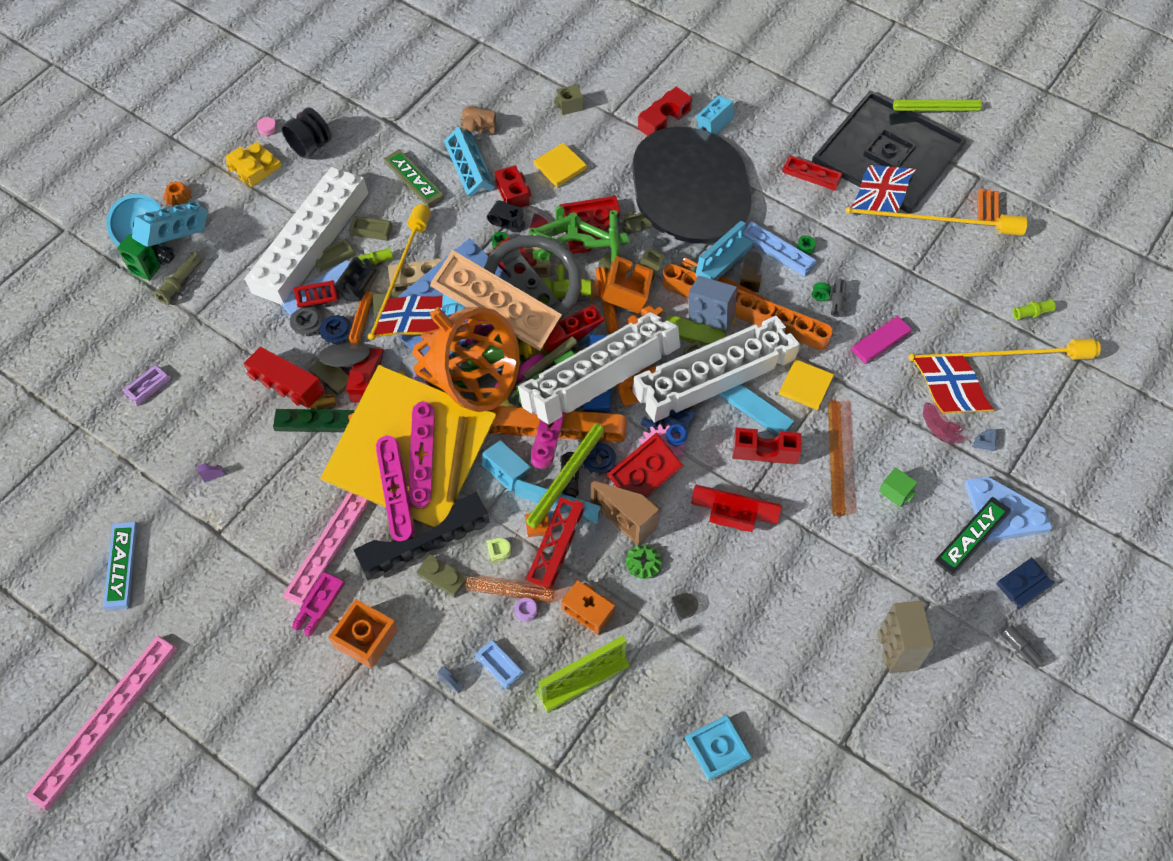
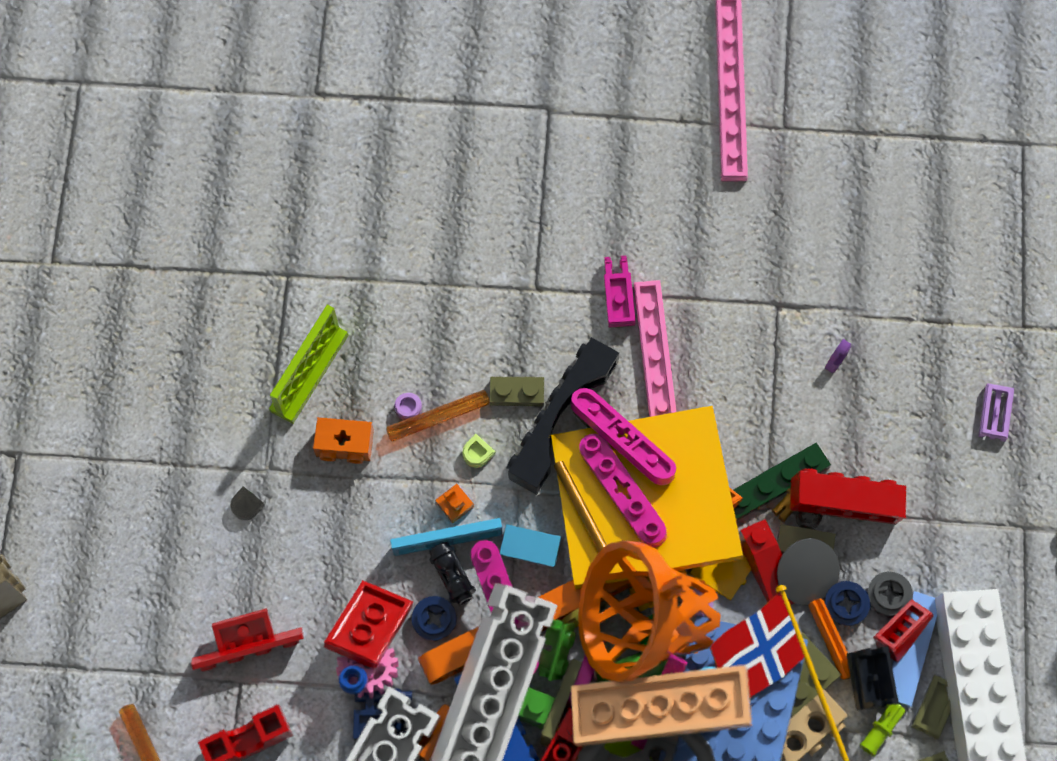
camera: 150 degrees right, 10 degrees up
(120, 566) = (843, 218): tile -> none
(363, 633) = (548, 282): orange brick -> none
(445, 677) = (437, 294): sand blue tile -> none
(499, 664) = (400, 339): light blue tile -> none
(562, 546) = (407, 480): red fence -> none
(565, 476) = (449, 559): lime axle -> none
(626, 510) = (358, 559): medium nougat slope -> none
(634, 565) = (327, 531): bright green gear -> none
(718, 747) = (138, 378): medium azure plate -> none

